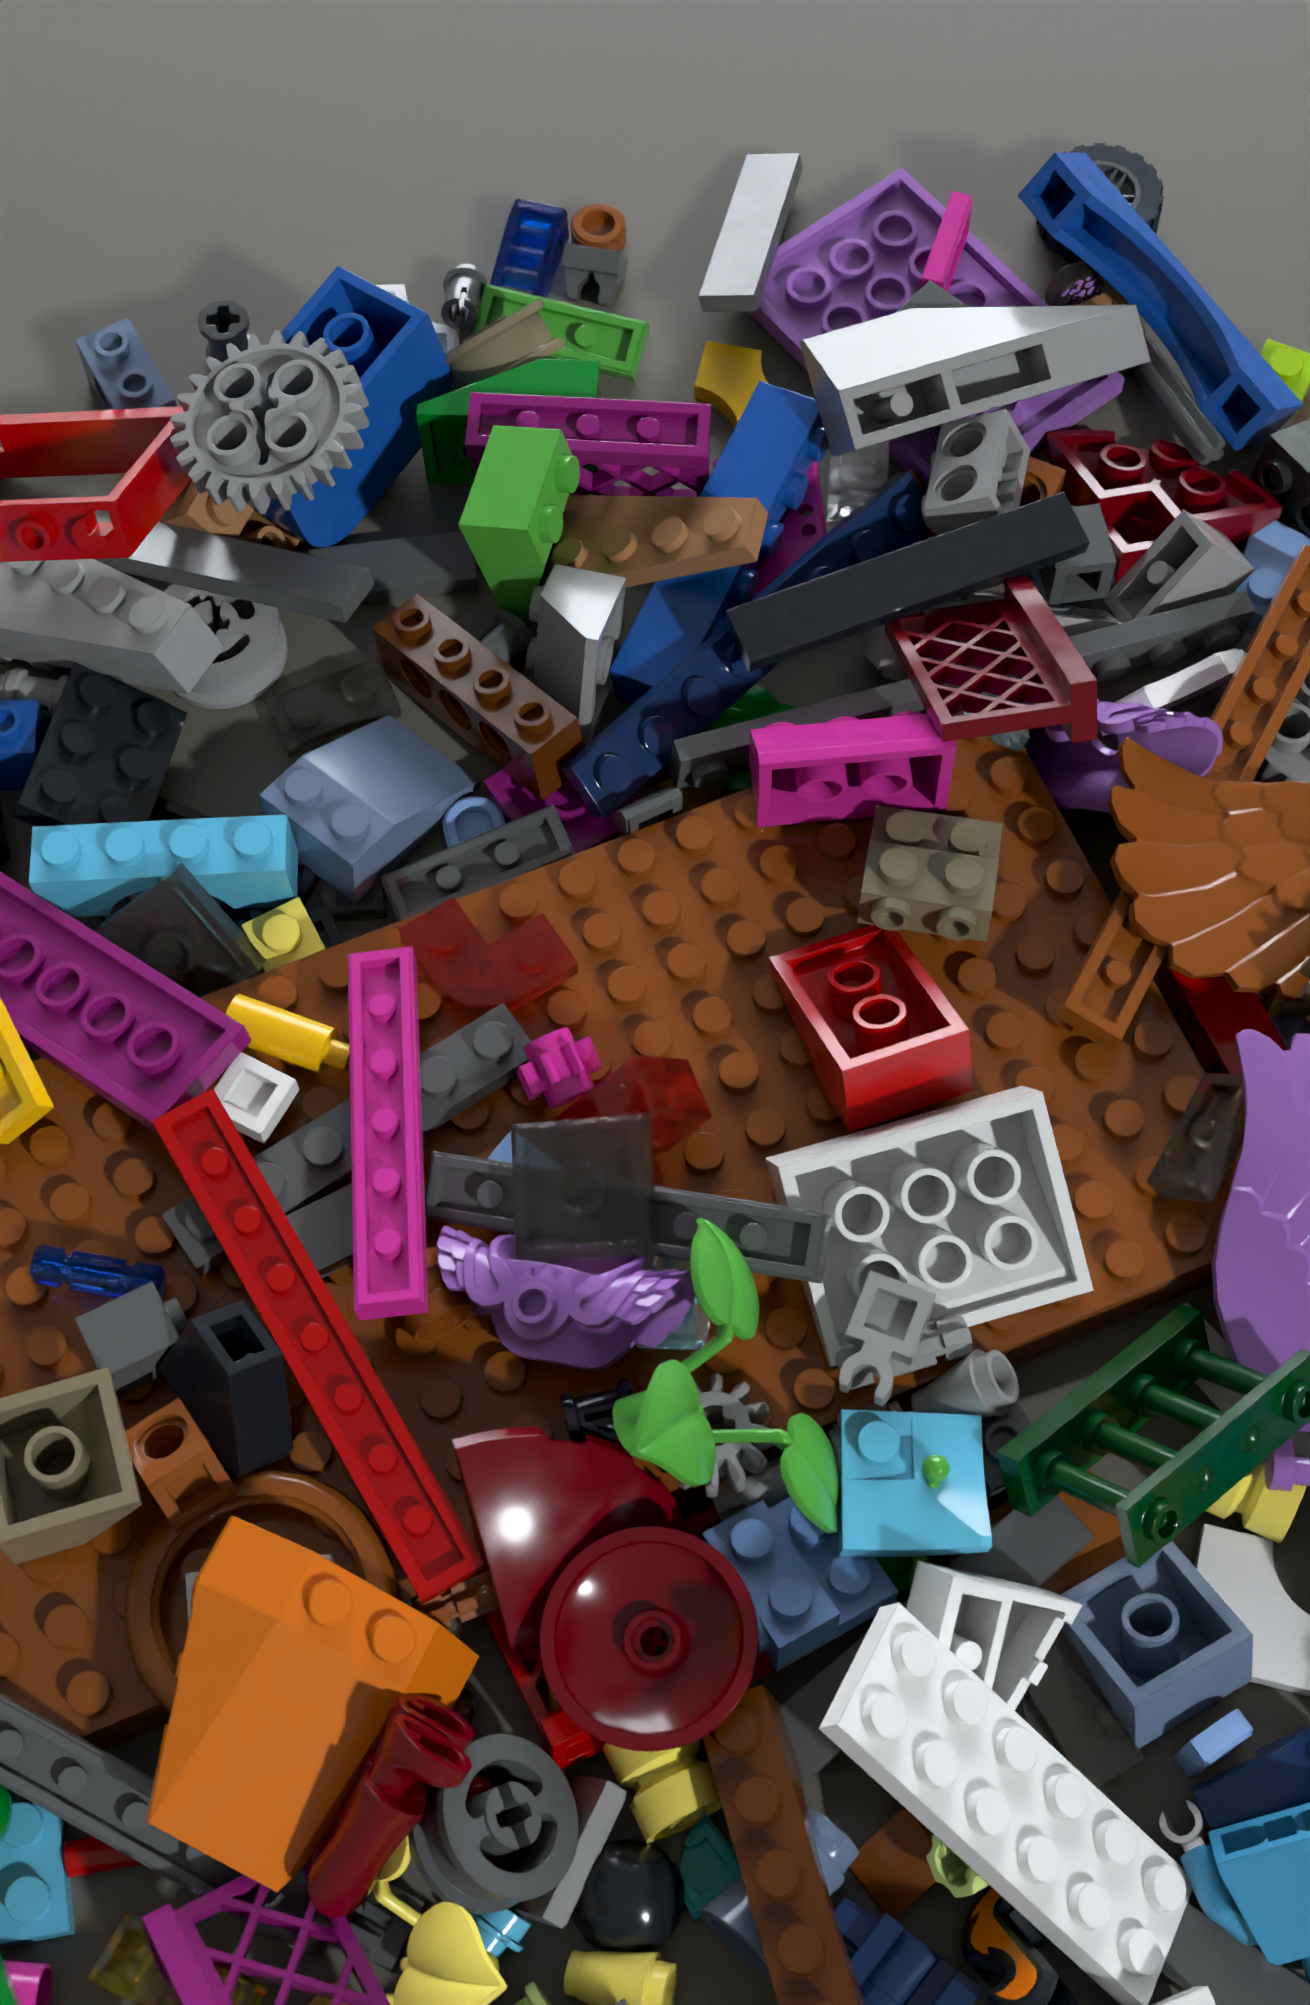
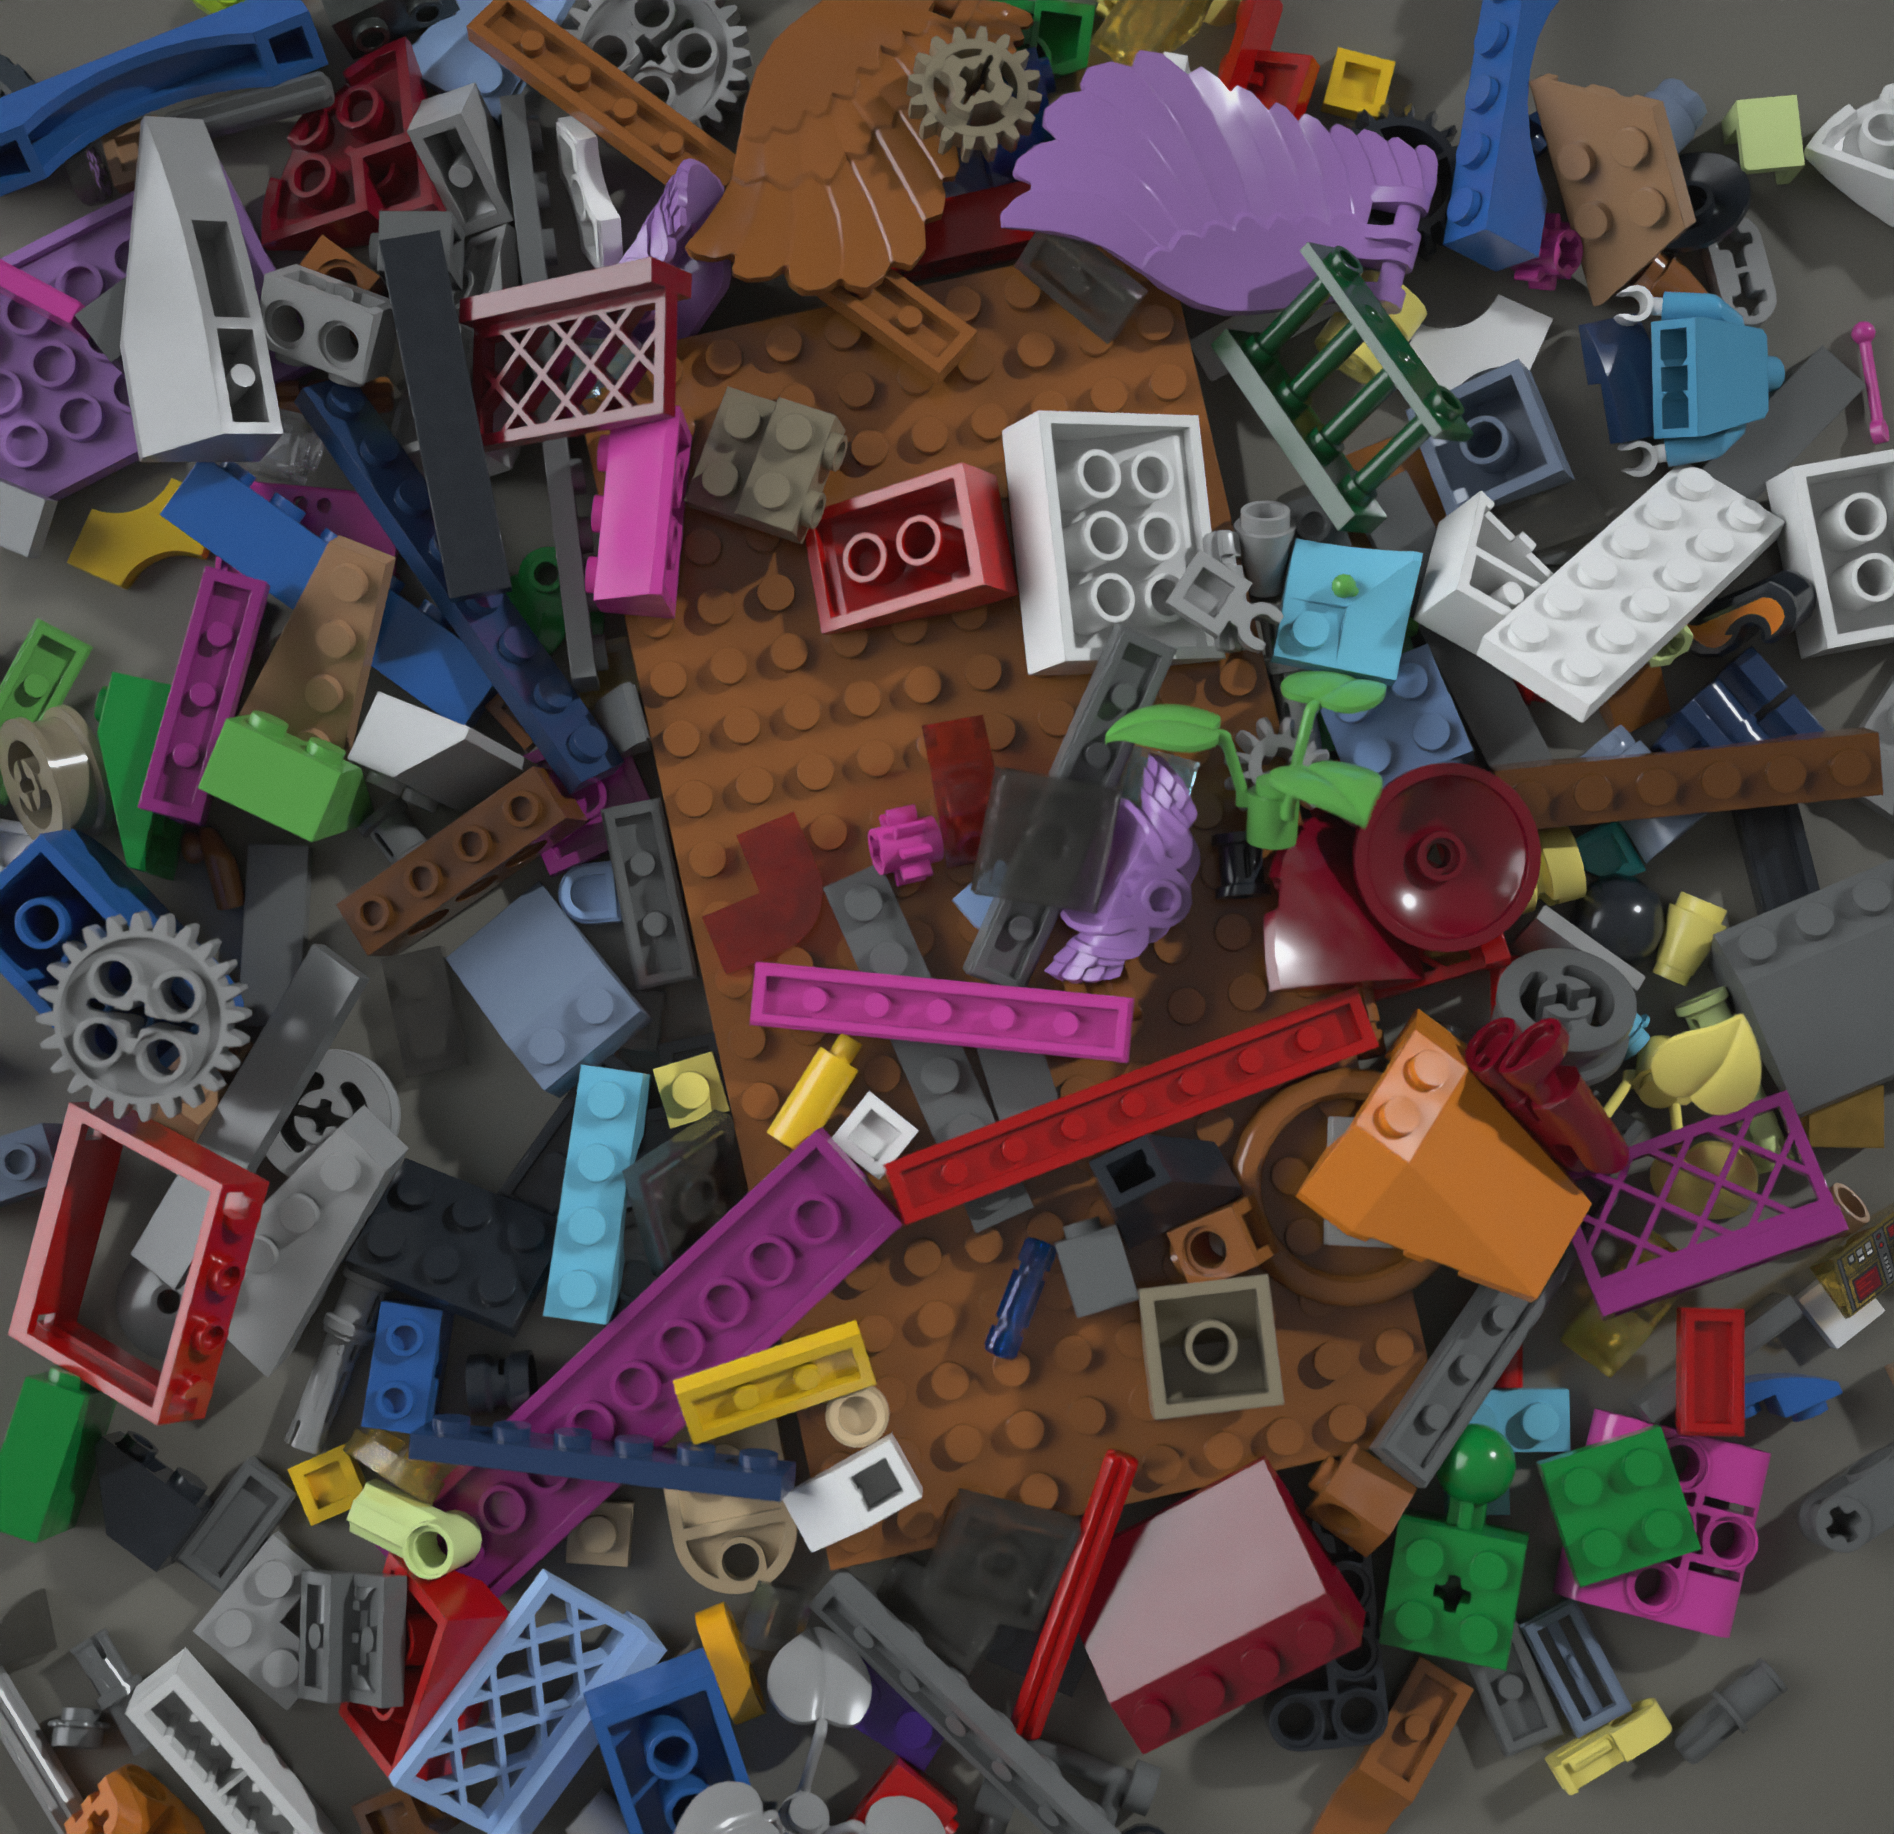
camera: 75 degrees left, 20 degrees up
(442, 510) = (220, 864): none -> dark orange arm
(1214, 1743) = (1579, 415): light blue tile -> none

